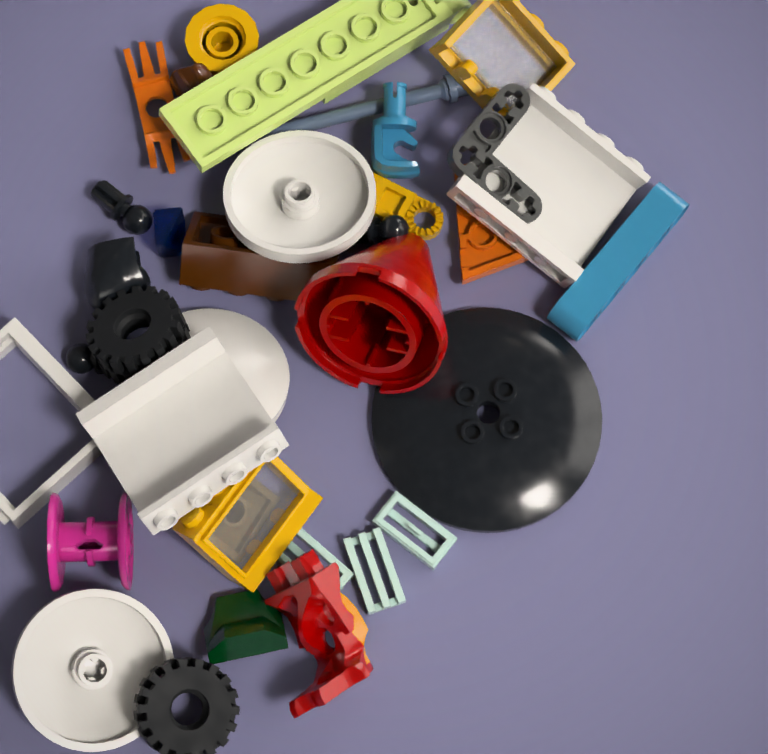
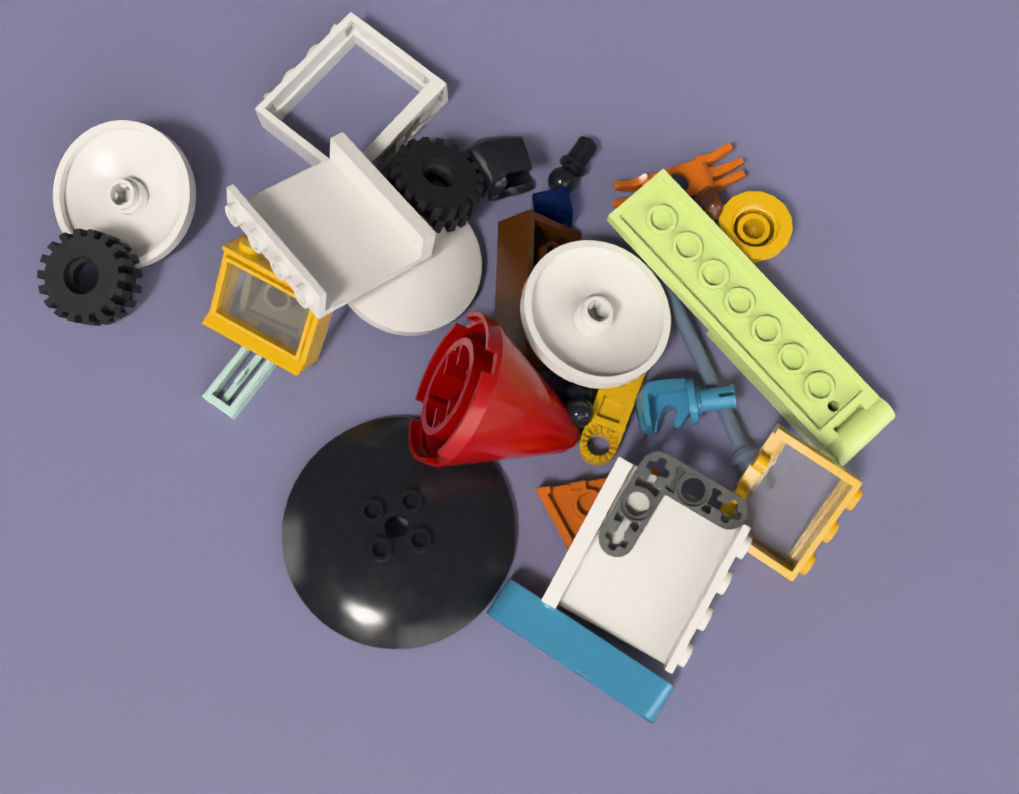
camera: 90 degrees right, 0 degrees up
(89, 541) = (234, 147): dark pink piece -> none
(243, 628) = (172, 323): dark green slope -> none
(313, 605) = (175, 395): red hips -> none
(363, 540) = (230, 424): light aqua tile -> none
(402, 540) = (266, 463): light aqua tile -> none

